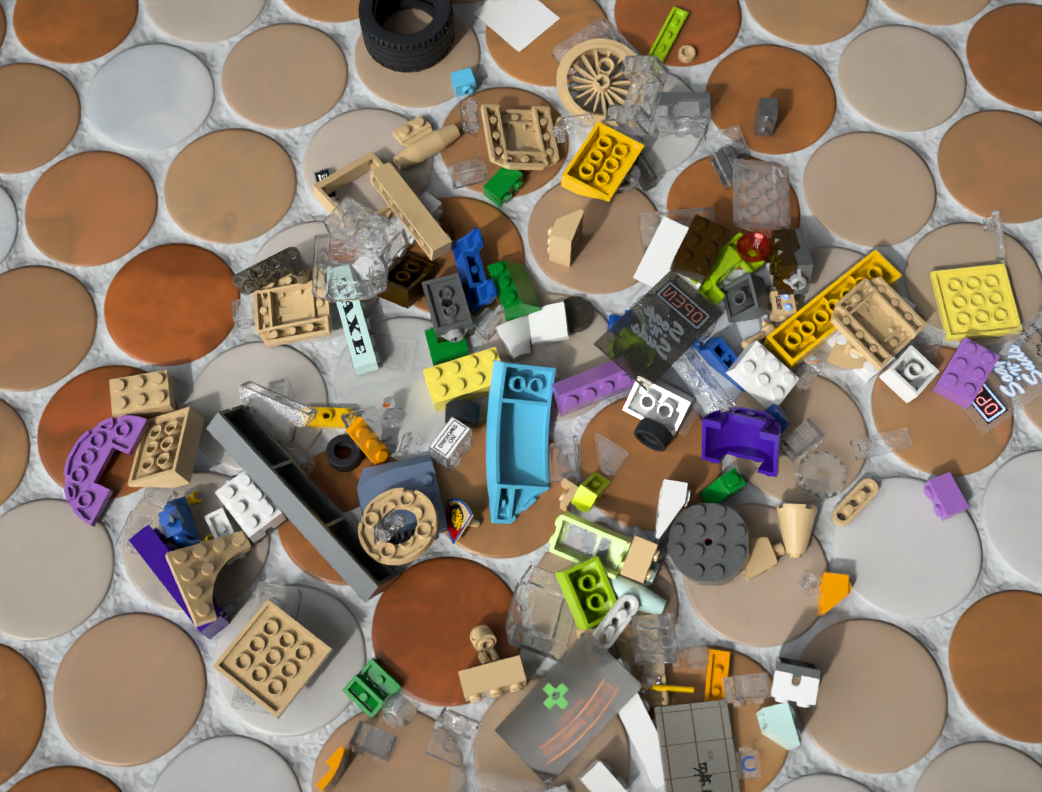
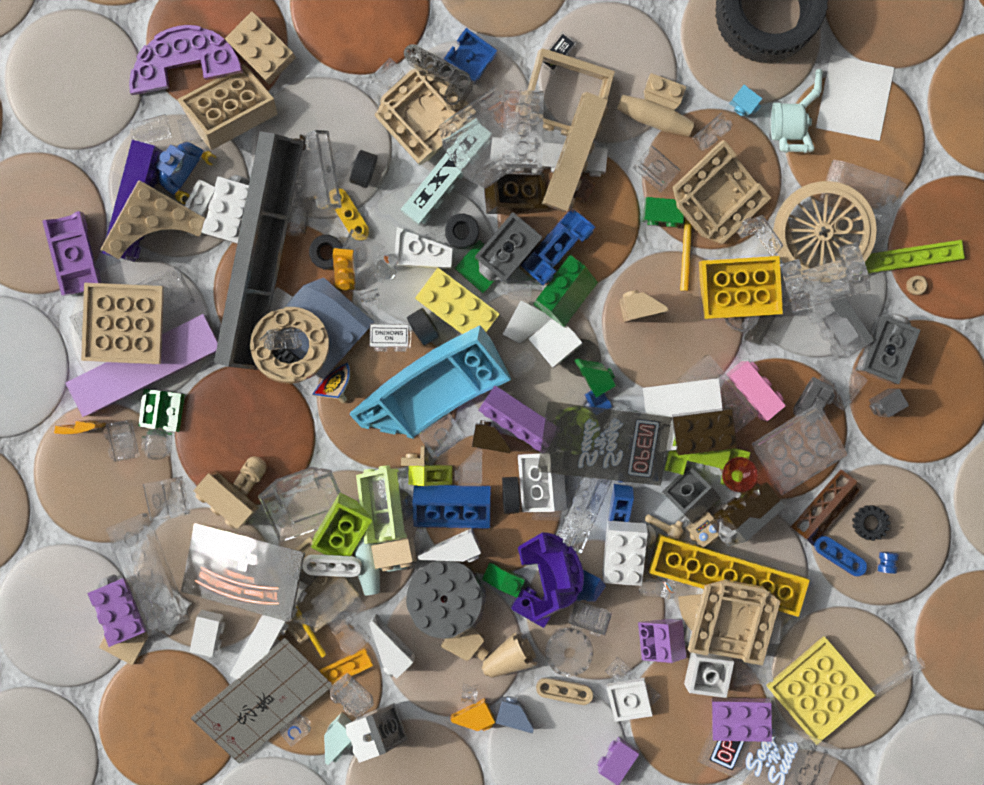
camera: 55 degrees right, 20 degrees up
(180, 670) = (71, 253): none -> medium lavender piece
(275, 239) = (468, 46): none -> blue piece
(300, 378) = (363, 168): none -> black tyre
(320, 699) = (117, 381): none -> lavender tile
(401, 379) = (420, 252): none -> white wing
(404, 326) = (465, 219): none -> black tyre
(503, 60) = (792, 121): none -> light aqua piece
(561, 199) = (686, 255): none -> yellow axle
(592, 419) = (488, 437): none -> dark brown slope
(600, 309) = (597, 376): none -> green slope
(630, 491) = (451, 506): none -> blue slope
(692, 196) = (756, 389): none -> bright pink brick
(725, 622) = (393, 652): none -> white slope
(728, 94) = (890, 350): none -> dark grey piece
(760, 484) = (522, 604): none -> dark purple brick
(828, 208) = (832, 511): none -> reddish brown fence
(850, 557) = (513, 715): none -> sand blue slope
(857, 177) = (881, 528): none -> black tyre
(857, 396) = (662, 640): none -> medium lavender slope
(872, 218) = (846, 561): none -> blue plate
(895, 452) = (629, 699): none -> white tile
(896, 192) = (888, 562): none -> blue wheel

